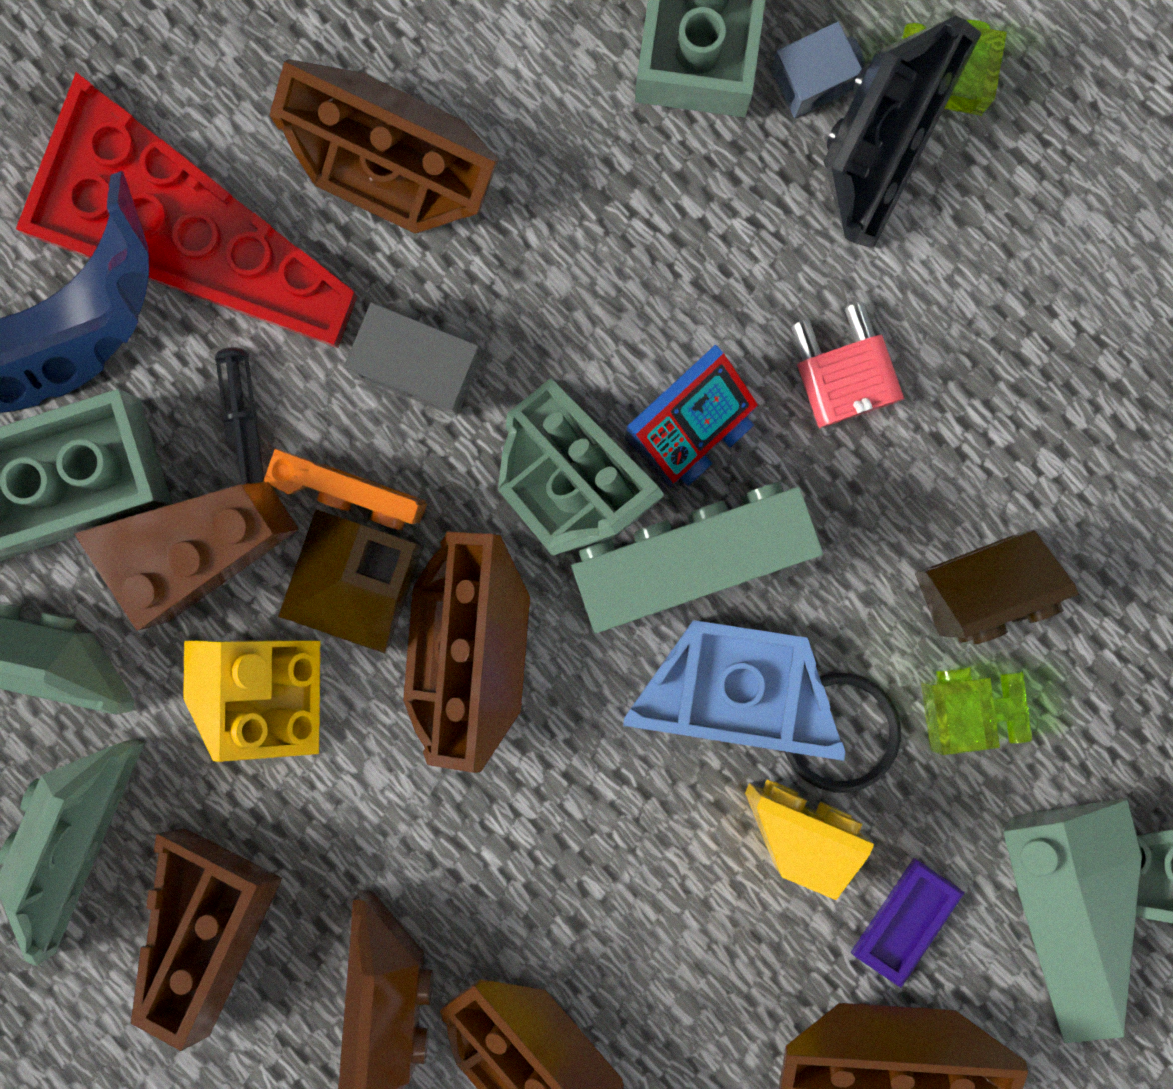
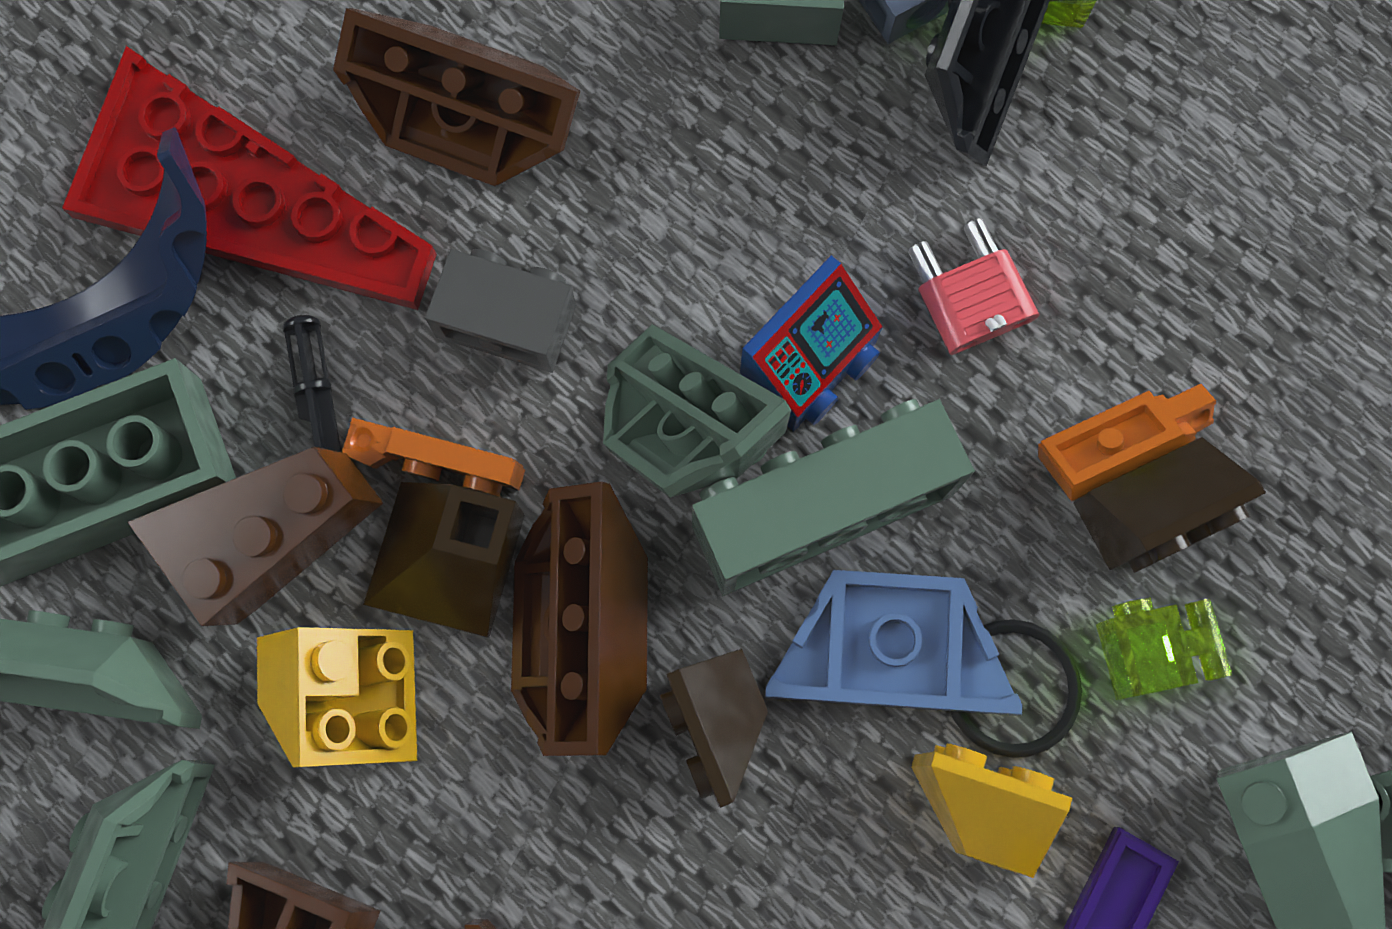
camera: 10 degrees left, 10 degrees down
(583, 744) = (723, 716): none -> dark brown slope
(967, 521) = (1124, 438): none -> orange hinge

